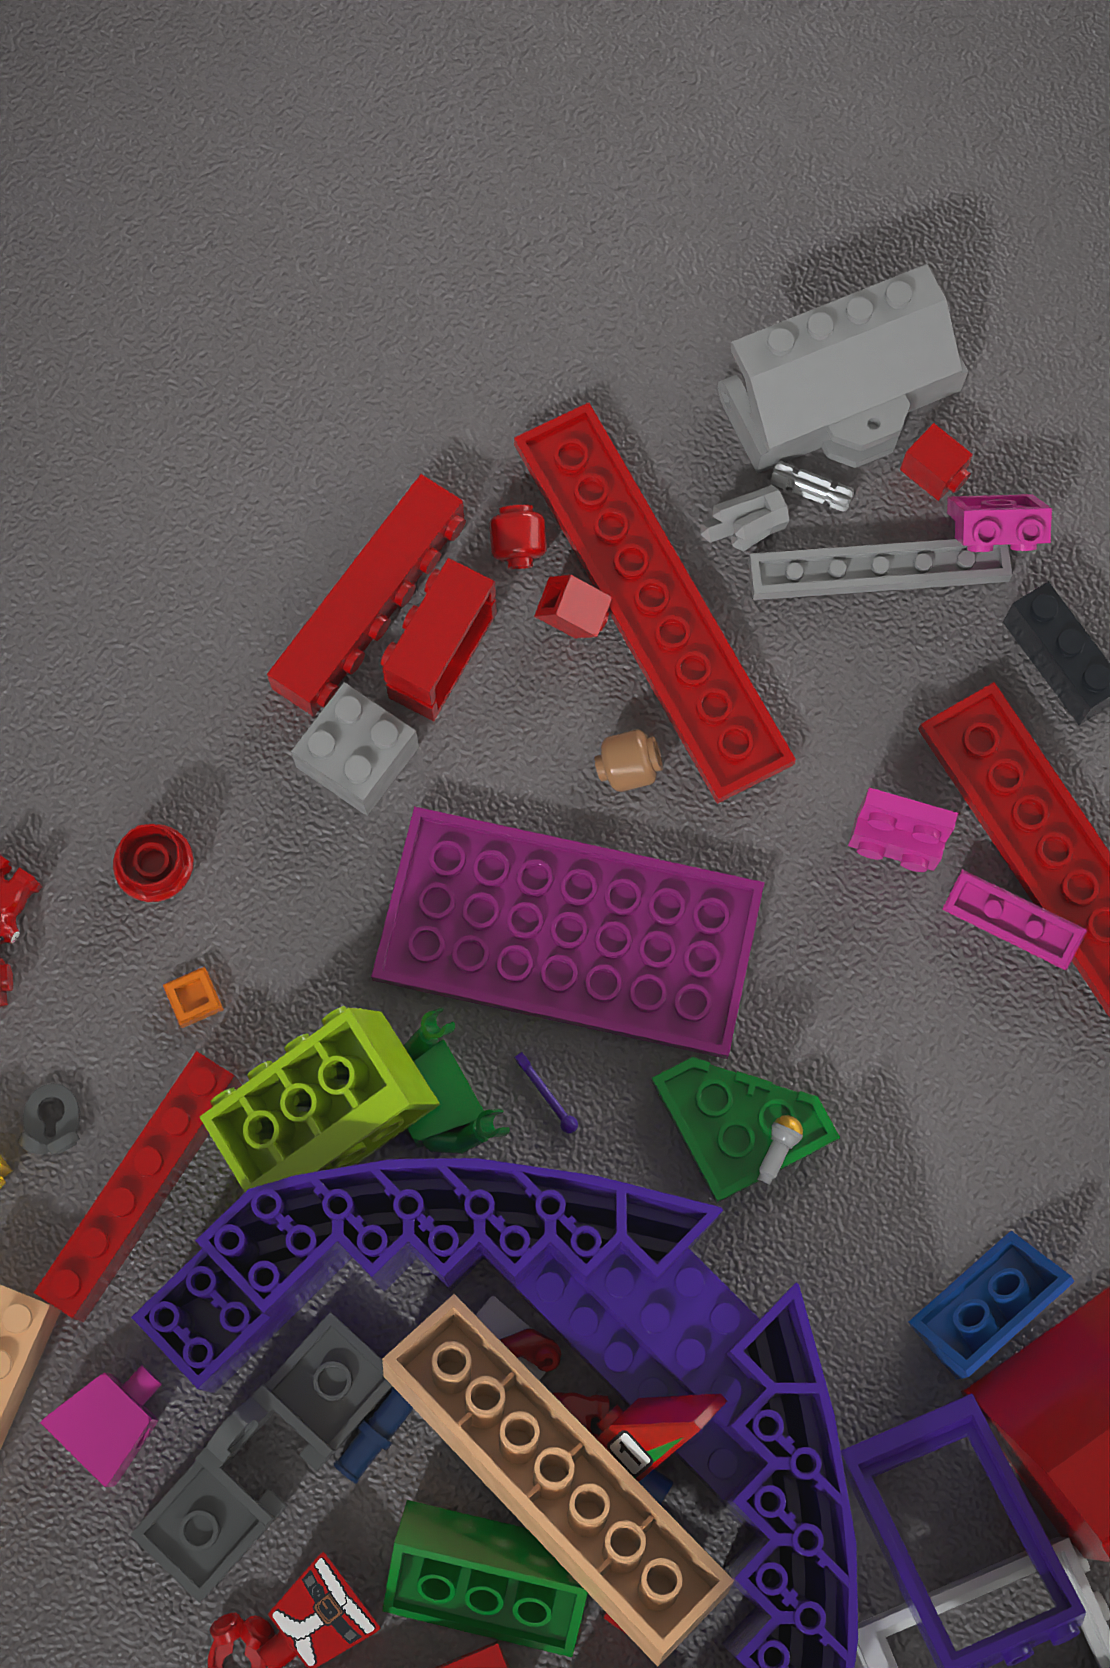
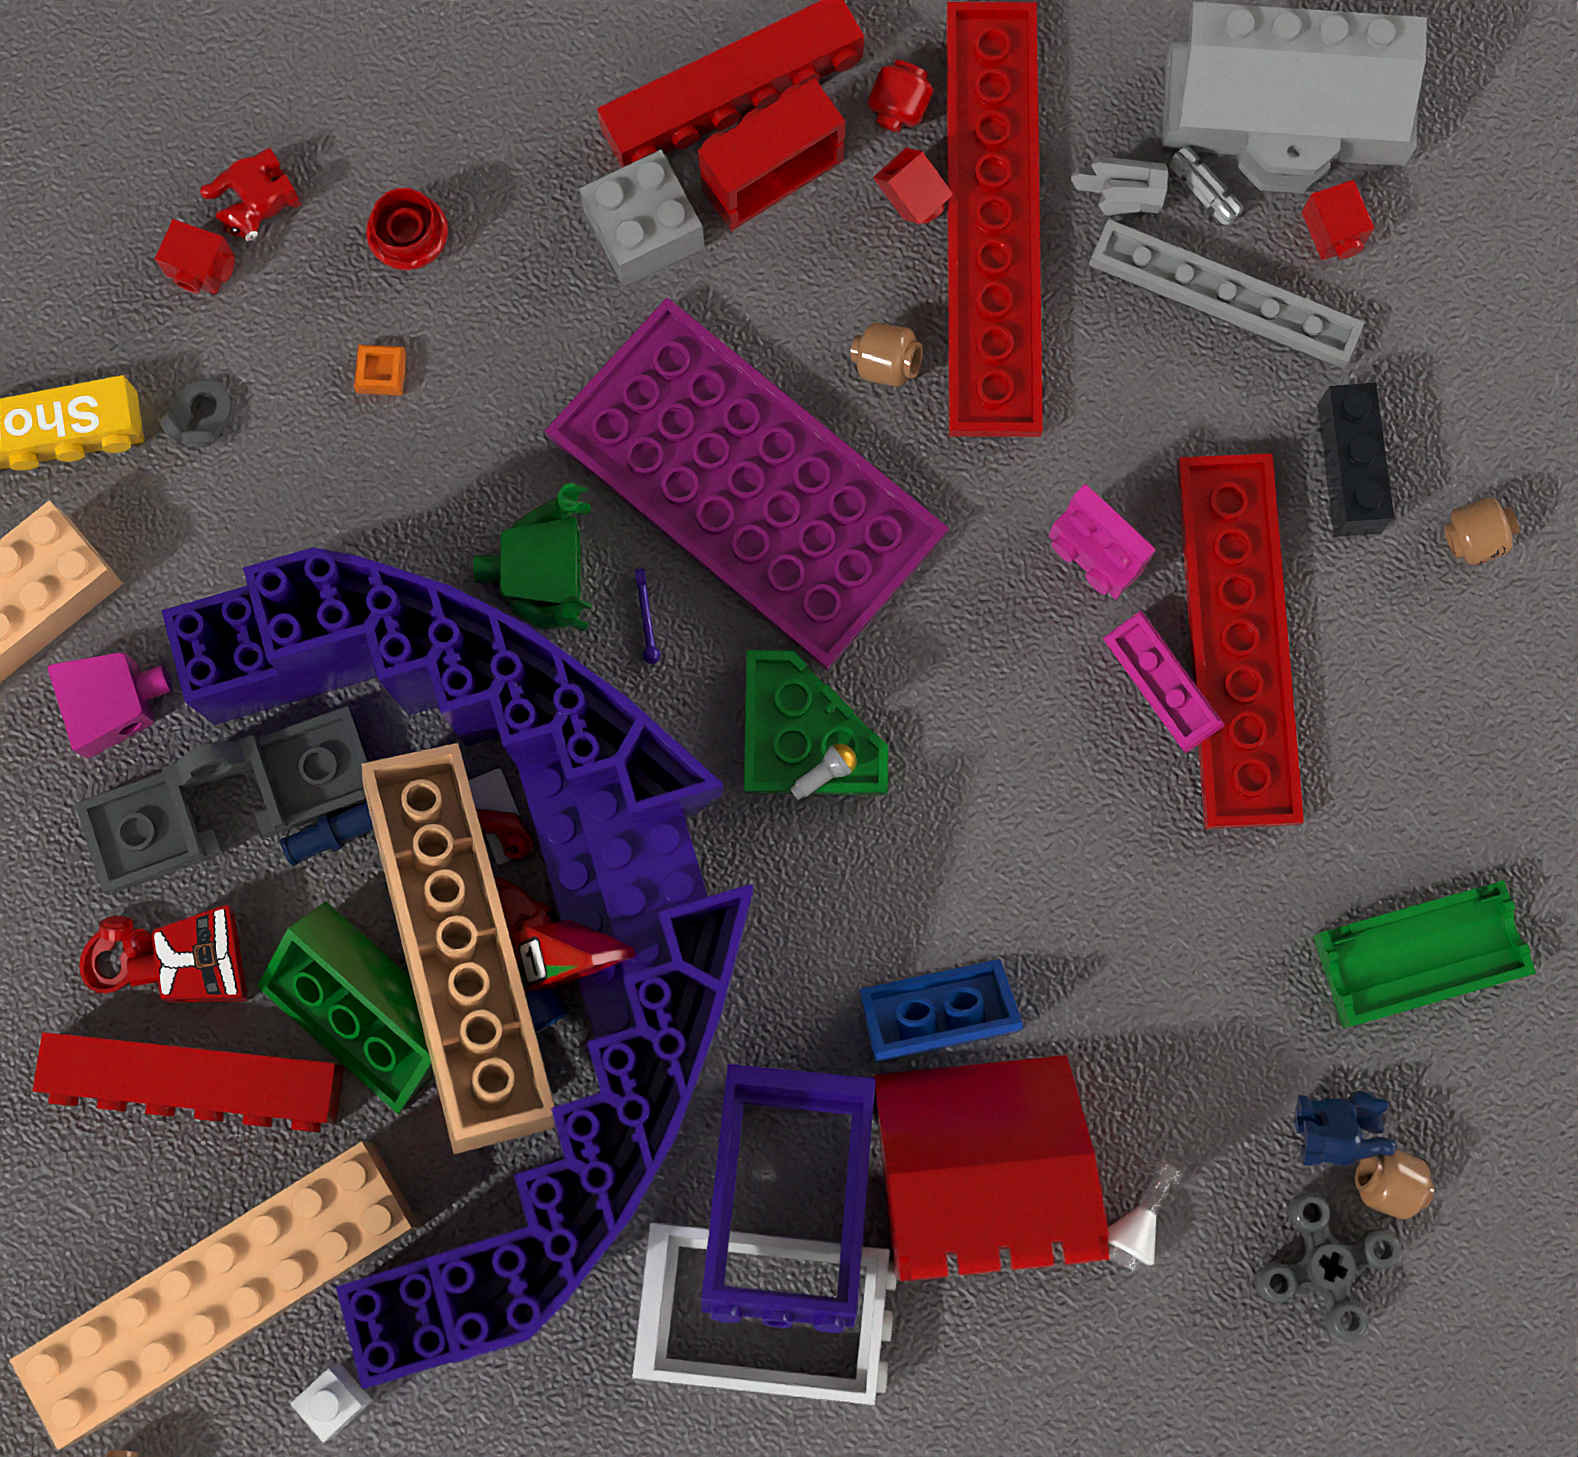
camera: 30 degrees right, 5 degrees up
(135, 1191) = (240, 510): red brick -> none
(321, 1101) = (436, 511): lime brick -> none
(1000, 520) = (1365, 304): dark pink plate -> none

